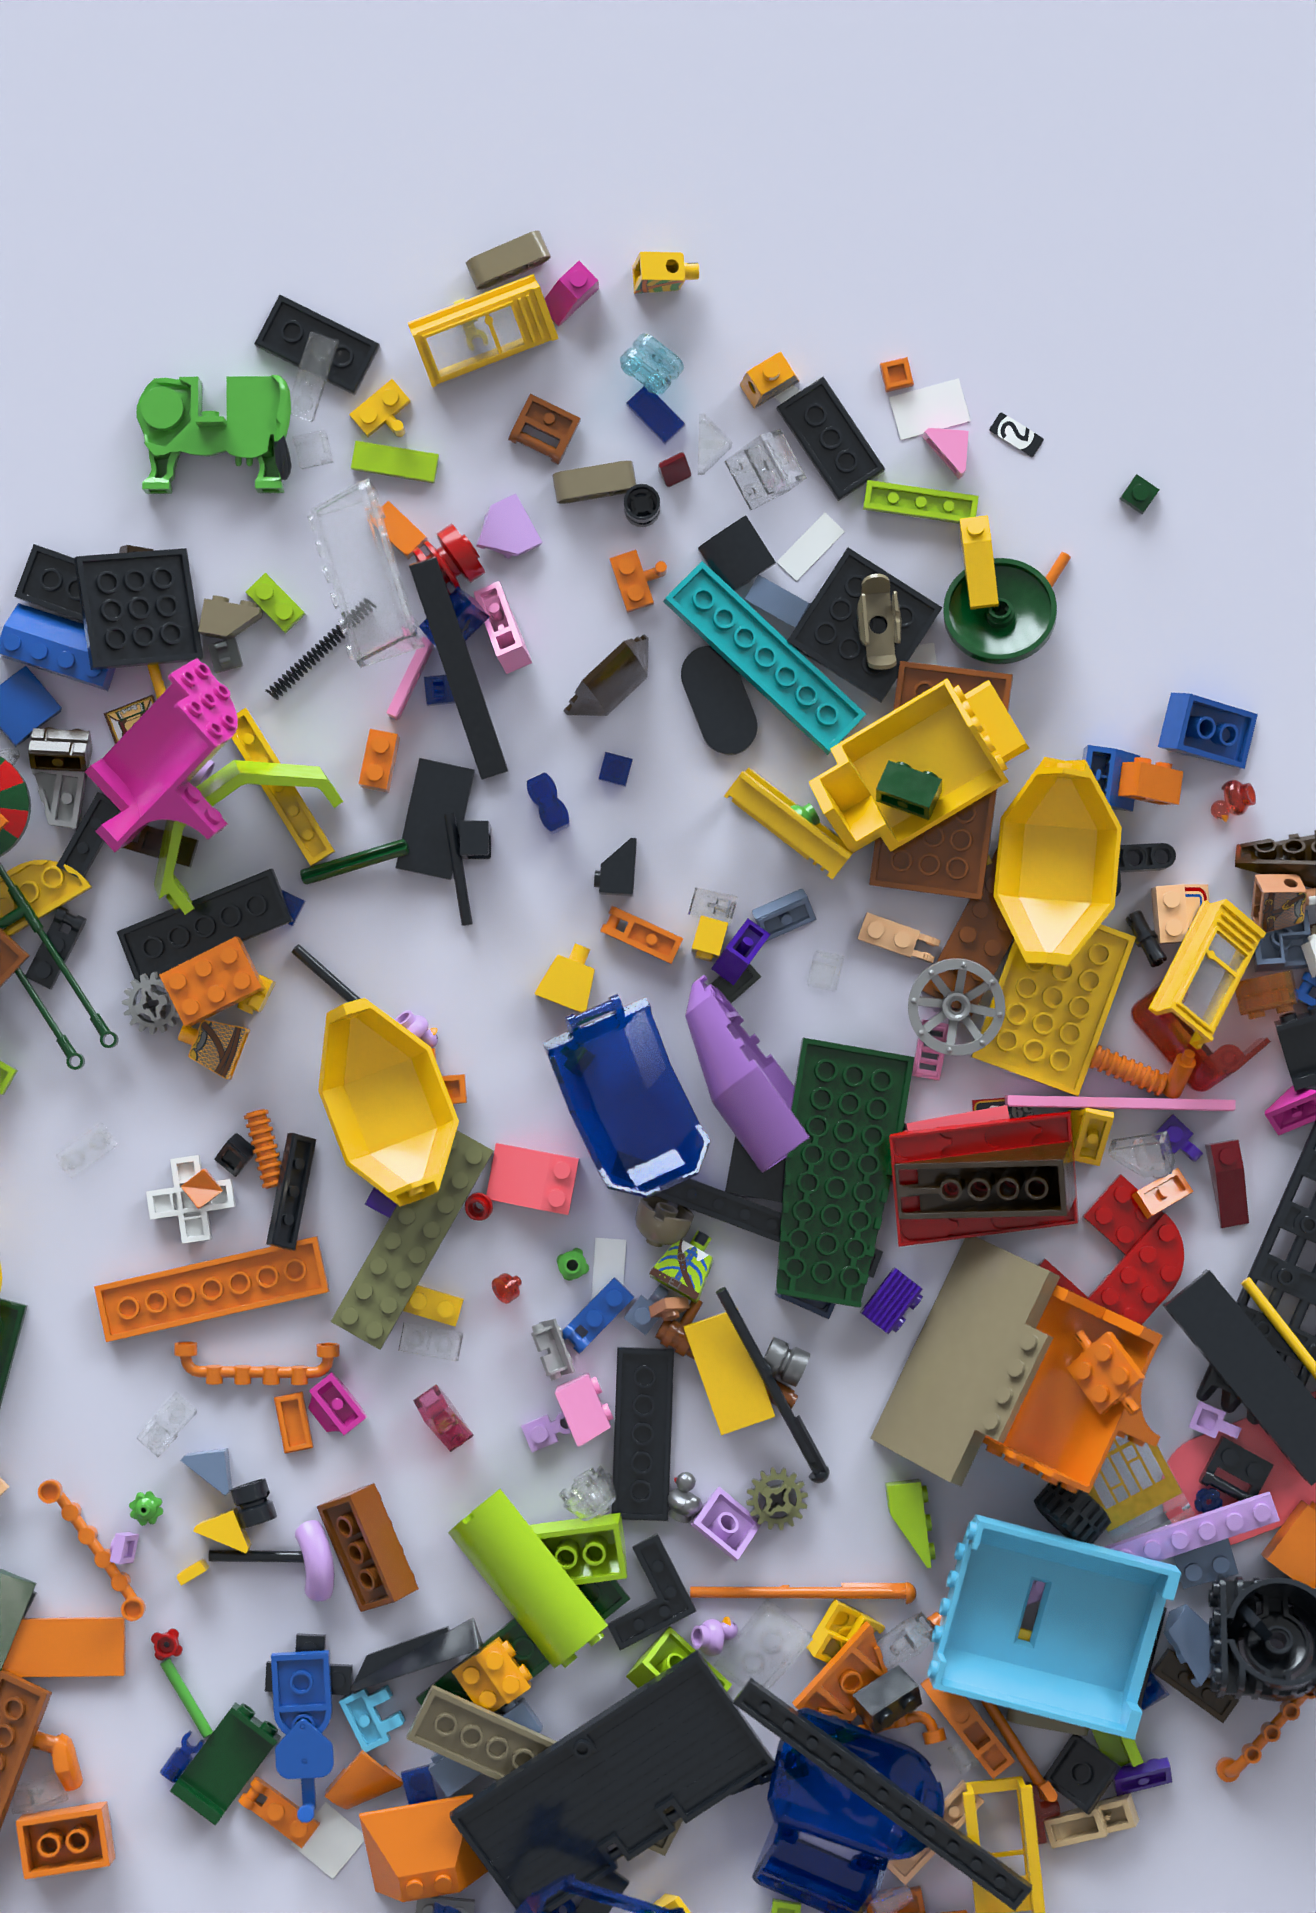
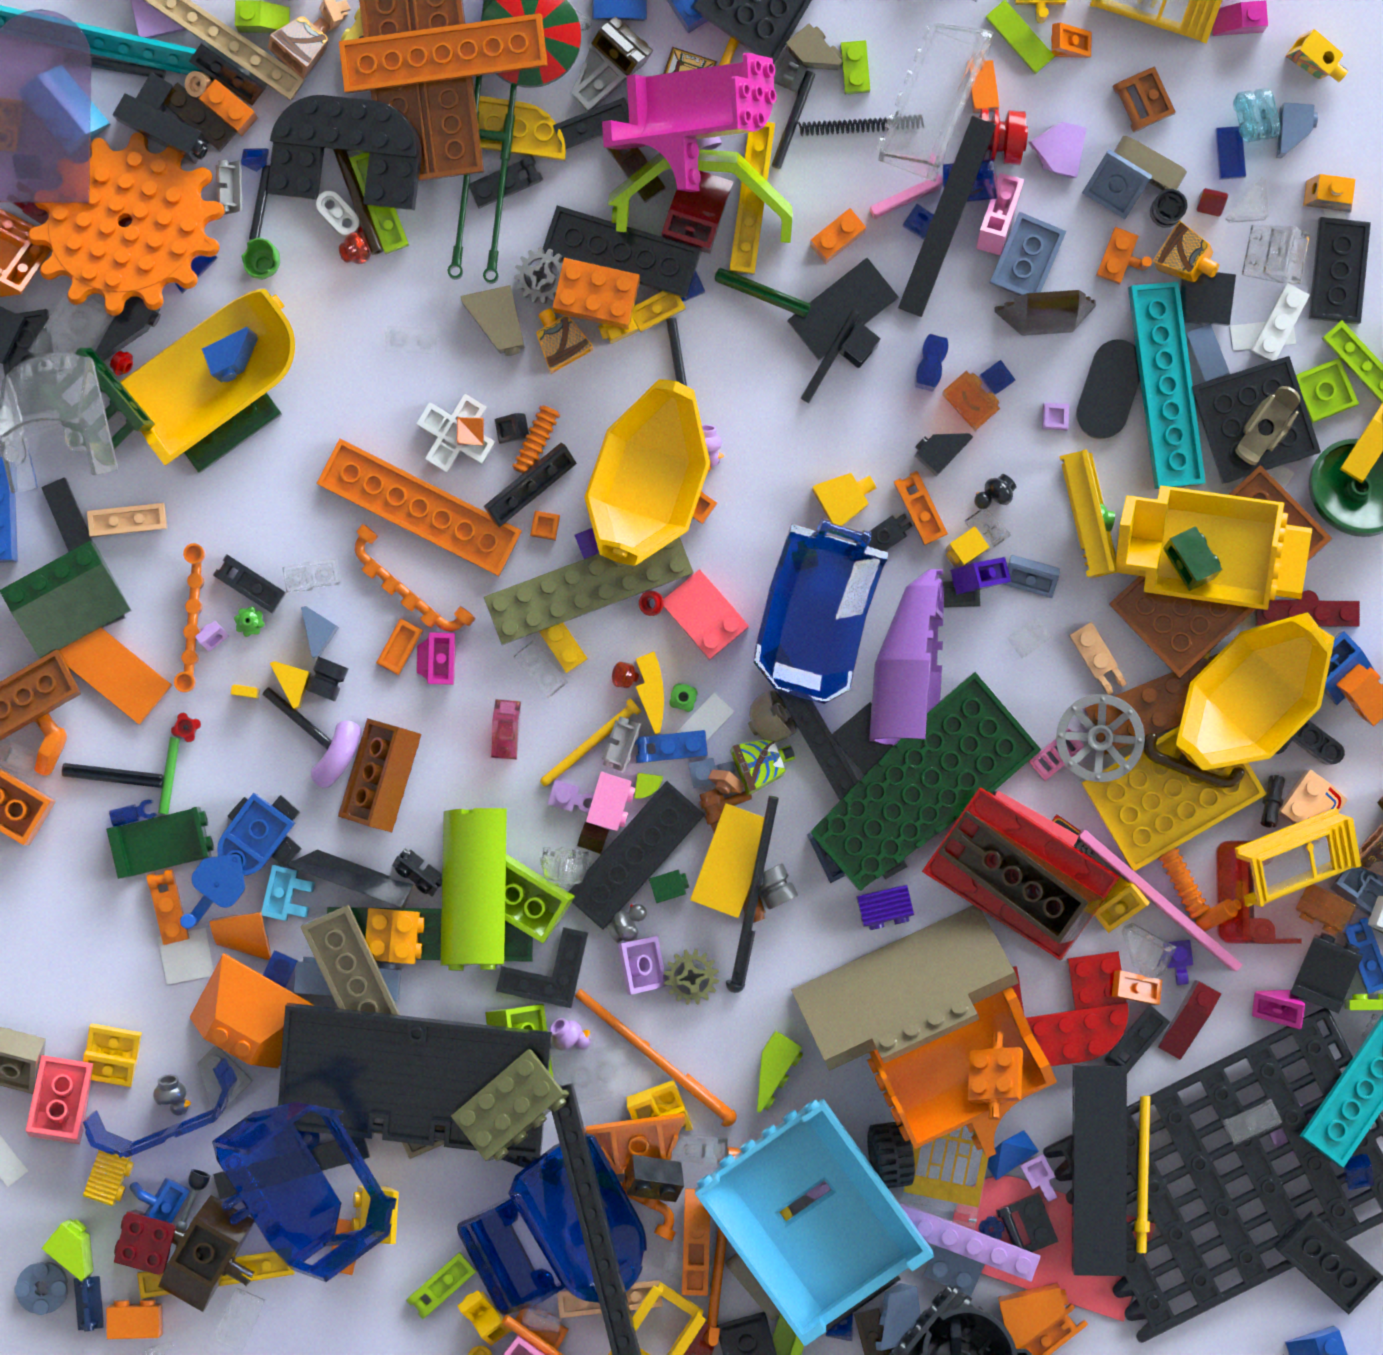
camera: 40 degrees right, 0 degrees up
(121, 1475) = (250, 584): none -> black plate
(137, 1738) = (112, 775): none -> black axle
(145, 1070) = (497, 317): none -> dark tan slope
(245, 842) = (697, 214): none -> dark red slope
(259, 691) = (793, 119): none -> black bar
(276, 951) = (656, 310): none -> yellow plate
(333, 1214) = (545, 525): none -> orange tile
(441, 430) = (1070, 41): none -> orange slope
(458, 1605) = (425, 880): none -> black hinge
(525, 1370) = (591, 742): none -> yellow bar
(542, 1281) = (652, 690): none -> yellow slope
(555, 644) = (1027, 255): none -> sand blue plate
(581, 520) = (1117, 184): none -> sand blue plate
(595, 1450) = (593, 837): none -> dark brown slope
(603, 1365) = (647, 785): none -> lime tile
(609, 807) = (971, 400): none -> clear orange brick
(631, 980) = (888, 533): none -> black hinge
(689, 533) = (1185, 255): none -> torso
(691, 345) = (1295, 125): none -> sand blue slope
(692, 761) = (1055, 416): none -> lavender tile
(693, 1438) = (669, 885): none -> dark green brick
(694, 865) = (996, 489): none -> black animal
(714, 1744) = (510, 1107): none -> olive bracket
(817, 525) = (1280, 323): none -> white plate
(903, 550) = (1326, 390): none -> lime tile
(1048, 972) = (1187, 768): none -> dark brown piece
(1052, 745) = (1323, 612): none -> dark red hinge
(1173, 1423) = (1011, 1154): none -> blue slope
(1198, 1235) = (1138, 1038): none -> black plate

